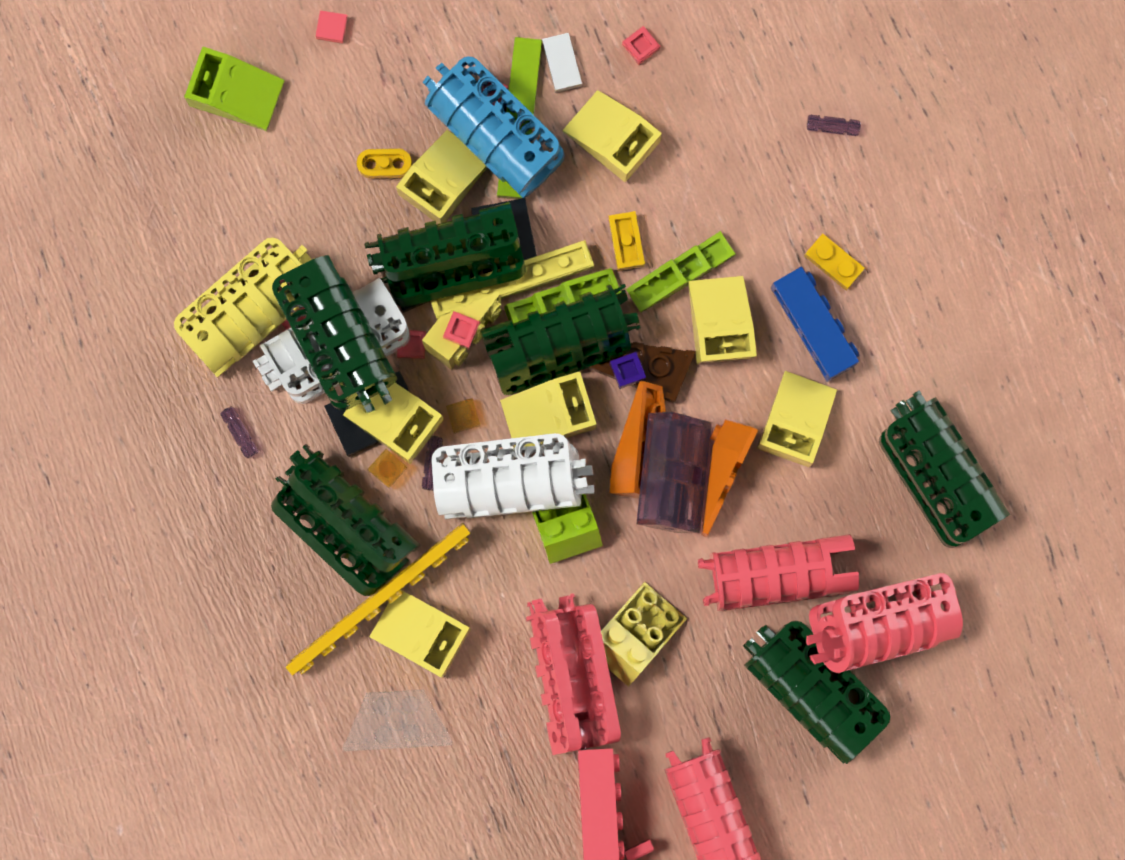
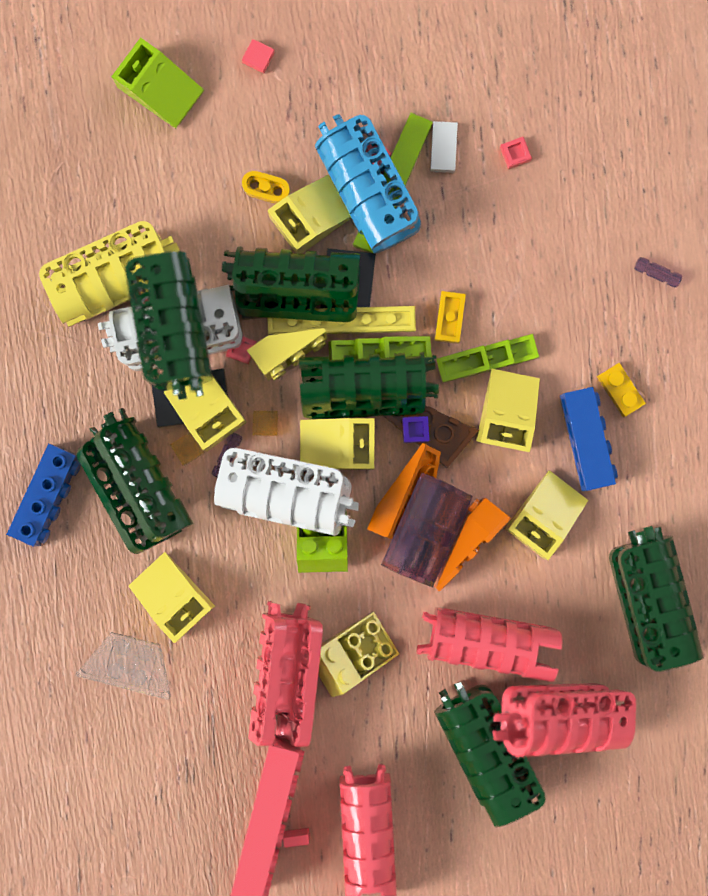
camera: 20 degrees right, 5 degrees up
(239, 432) = (73, 378): clear purple axle -> none
(247, 566) = (44, 496): none -> blue brick
(369, 608) = (136, 561): yellow plate -> none
(461, 330) = (282, 352): coral tile -> none
(613, 134) = (468, 222): light yellow slope -> none

